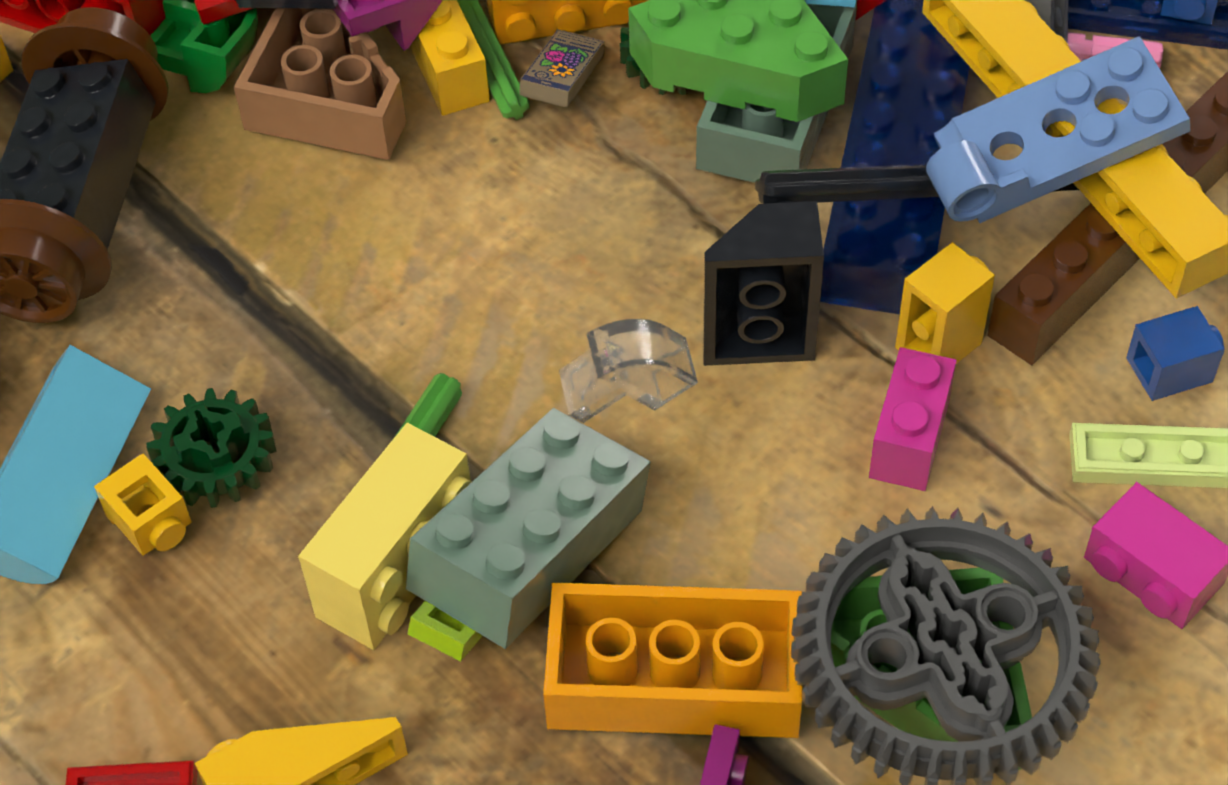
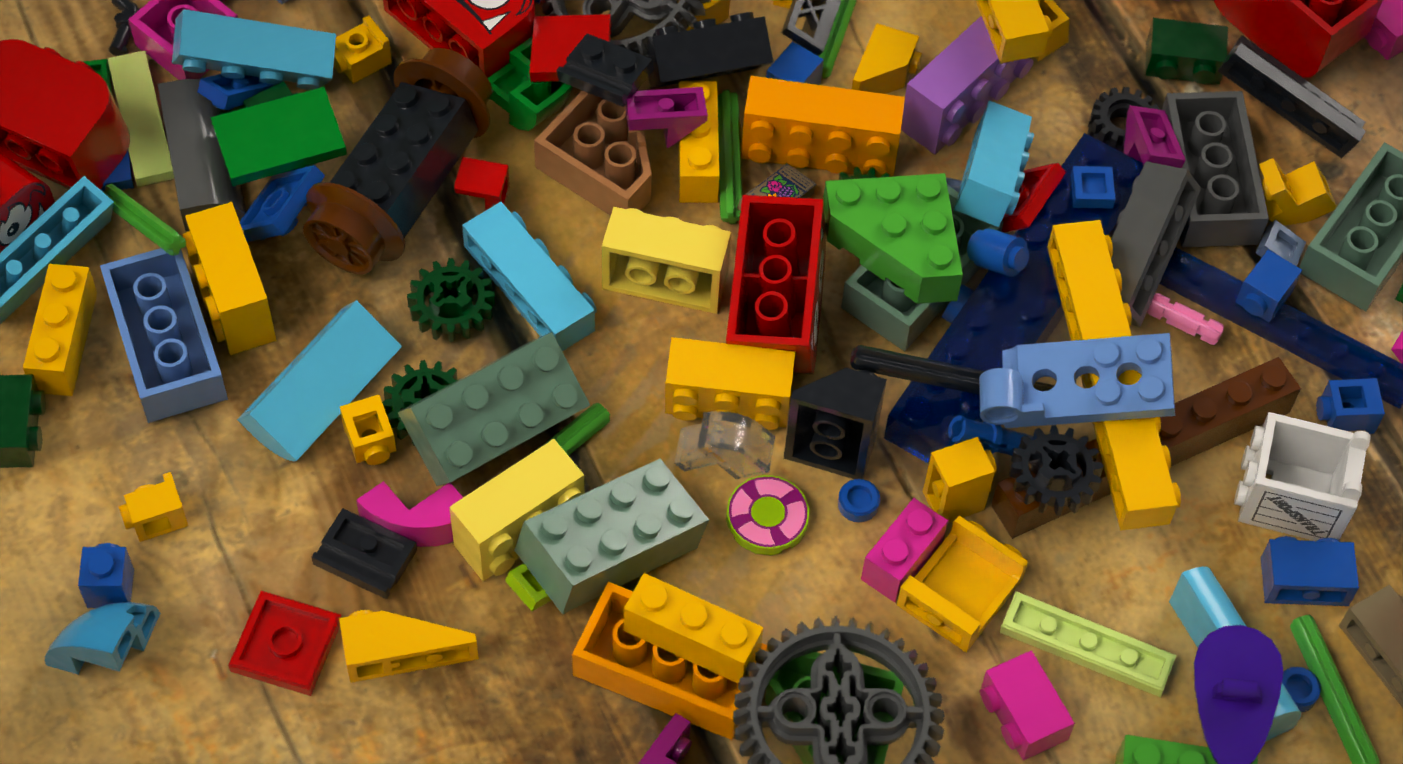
camera: 15 degrees right, 5 degrees up
(187, 157) = (483, 180): none -> red panel
(195, 312) = (451, 300): none -> dark green gear
(196, 667) = (364, 553): none -> black plate
(264, 604) = (425, 523): none -> dark pink brick
(288, 254) = (529, 276): none -> medium azure brick
(305, 421) = (494, 409): none -> sand green brick
(457, 174) = (665, 259): none -> light yellow brick
(598, 279) = (728, 379): none -> yellow brick
(617, 152) = (779, 276): none -> red brick
(698, 599) = (692, 628): none -> yellow brick
(716, 438) = (767, 514): none -> tile
(823, 382) = (858, 500): none -> blue tile
(839, 121) = (955, 307): none -> blue tile
(872, 29) = (998, 251): none -> blue brick
(987, 245) = (990, 435): none -> blue pin
(1003, 435) = (963, 583): none -> yellow panel
(1068, 250) = (1056, 470): none -> black gear
(1175, 352) = (1112, 566): blue brick -> none

